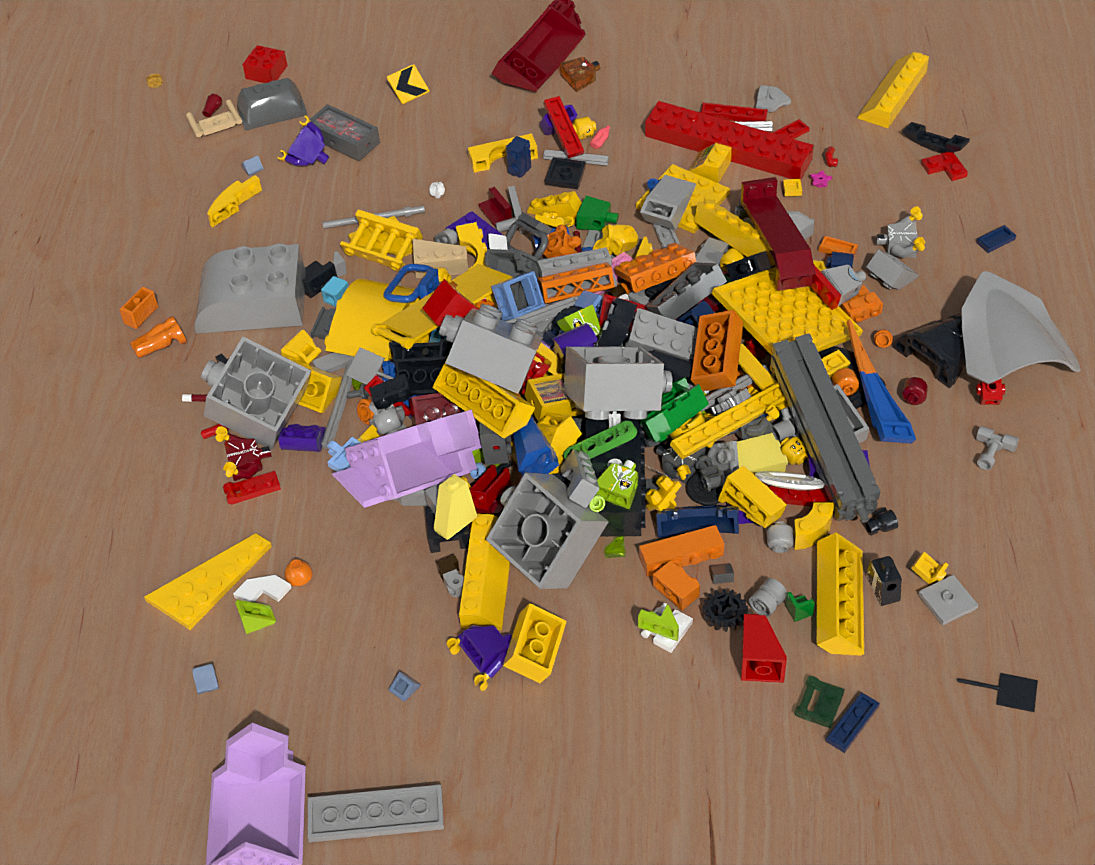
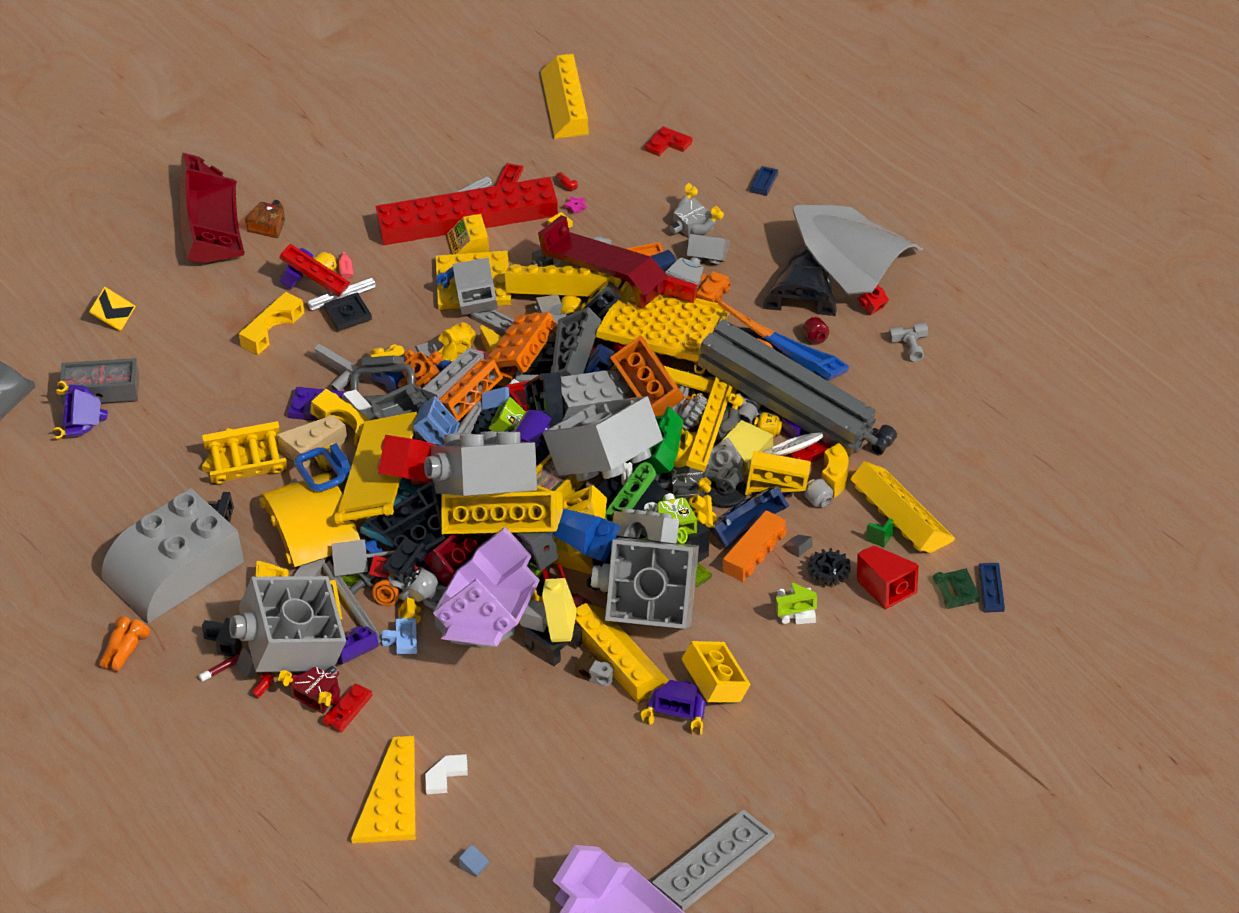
camera: 40 degrees left, 5 degrees down
(138, 307) = (76, 629): orange brick -> none
(227, 202) = (53, 494): yellow slope -> none
(252, 165) = (35, 457): slope -> none
(254, 615) = (462, 795): lime slope -> none
(298, 573) = (462, 743): orange brick -> none
(323, 323) = (267, 546): dark grey plate -> none
(334, 290) = (247, 517): medium azure brick -> none
(339, 263) = (219, 488): light grey slope -> none
(404, 686) = (638, 767): sand blue slope -> none
(407, 212) = (234, 419): light grey bar -> none
(437, 189) = (240, 385): white plate -> none
(446, 236) = (303, 417): light grey plate -> none
(495, 208) = (315, 372): dark red panel -> none
(518, 156) = (295, 317): dark blue brick -> none
(564, 204) = (378, 336): yellow slope -> none
(595, 214) = (414, 331): green torso -> none
(676, 585) = (778, 570): orange brick -> none
(734, 113) = (444, 185): red tile -> none
(768, 597) = (852, 538): light grey wheel -> none
(771, 98) = (464, 157): light grey plate -> none
(883, 338) = (752, 304): orange plate -> none
(884, 574) = (925, 476): black torso -> none
(918, 134) = (640, 126): black slope -> none
(929, 569) = (948, 453): yellow bracket -> none
(948, 600) = (979, 466): light grey plate -> none
(1012, 691) = (1079, 500): black piece -> none

